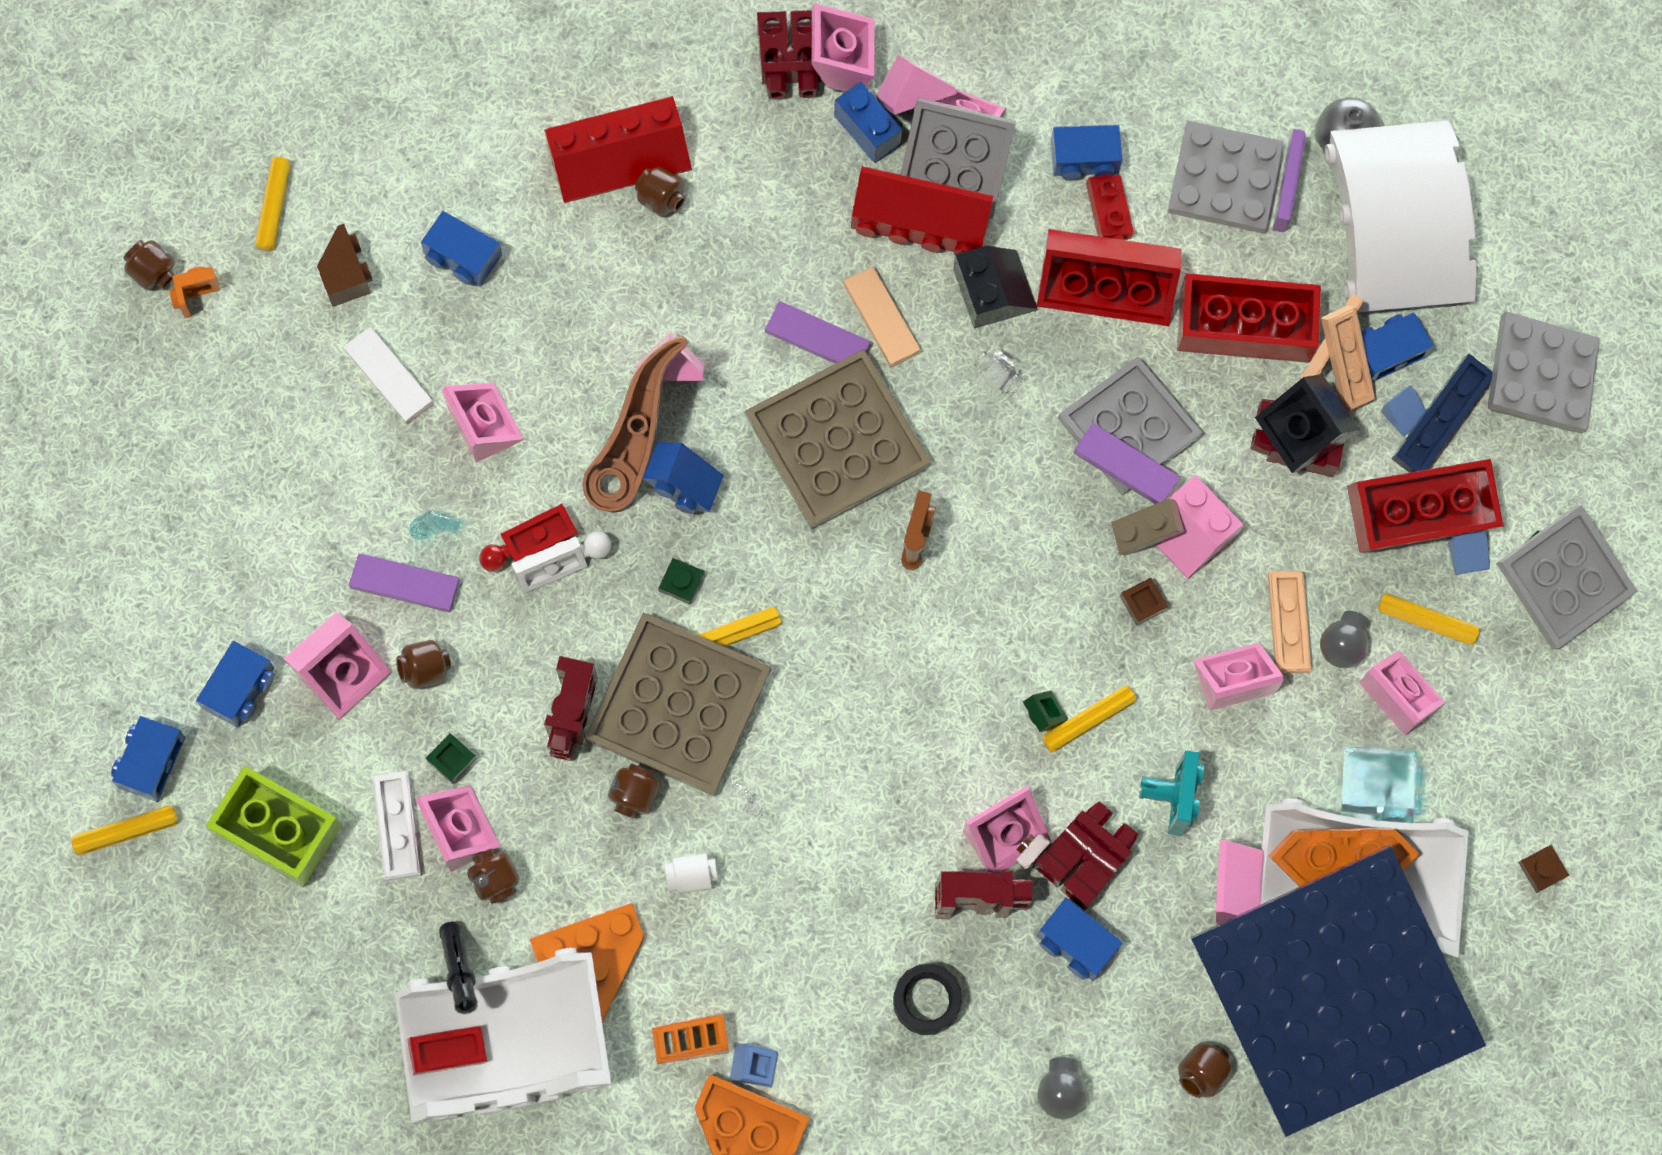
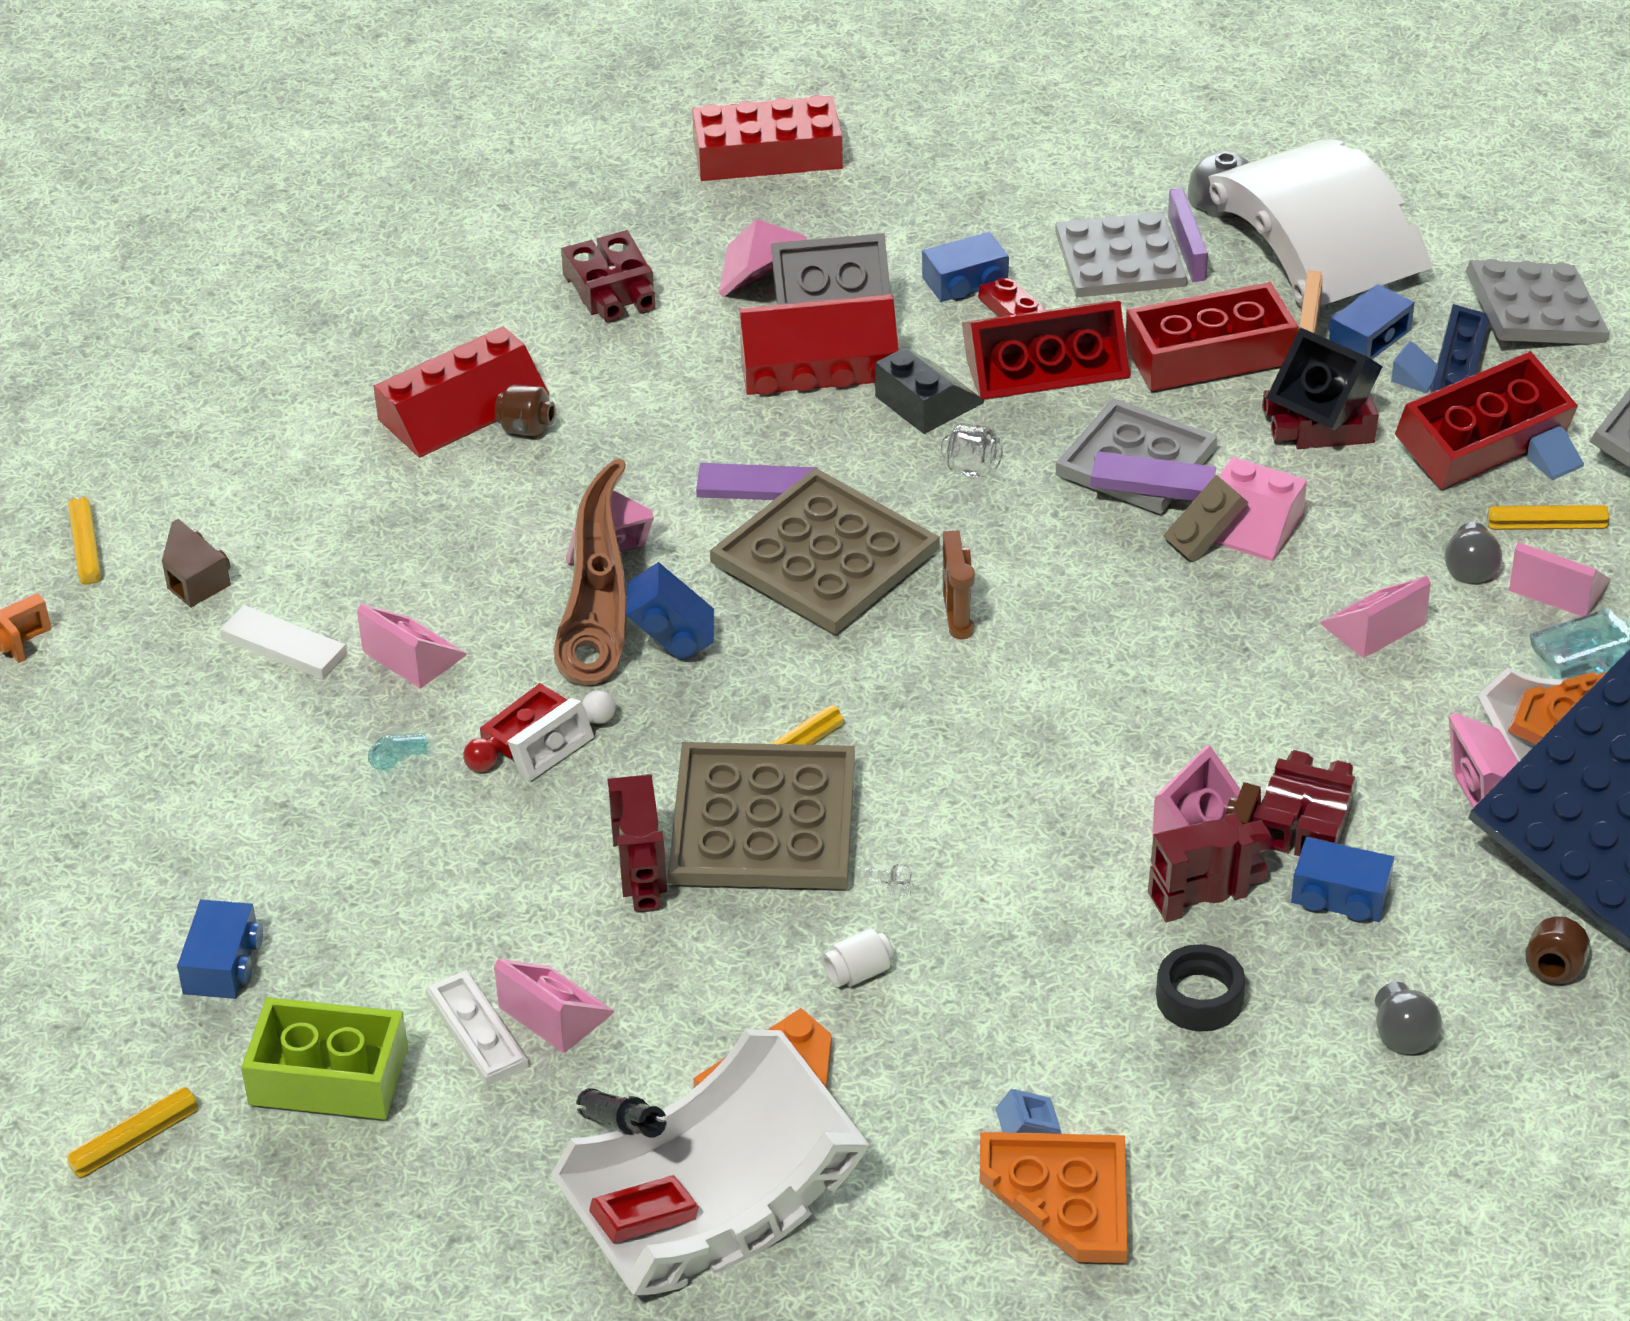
camera: 15 degrees left, 30 degrees down
(147, 758) = (135, 1049): blue brick -> none
(337, 664) = (337, 895): bright pink slope -> none
(404, 583) = (383, 809): medium lavender tile -> none
(423, 664) = (441, 866): reddish brown head -> none
(451, 758) = (515, 940): dark green plate -> none
(460, 249) = (321, 513): blue brick -> none
(493, 876) = (621, 1026): reddish brown head -> none
(633, 791) = (751, 902): reddish brown head -> none
(681, 581) = (710, 716): dark green plate -> none
(688, 1026) = (950, 1091): orange slope -> none
(842, 47) = (671, 250): bright pink slope -> none
(867, 122) = (715, 300): blue brick -> none
(881, 317) = (819, 448): light nougat tile -> none
(1045, 711) = (1184, 703): dark green plate -> none
(1088, 718) = (1236, 699): yellow axle -> none
(1143, 601) = (1237, 585): reddish brown plate -> none
(1178, 792) = (1378, 712): teal plate -> none
(1289, 622) = (1401, 556): light nougat tile -> none
(1348, 357) = (1326, 314): light nougat tile -> none

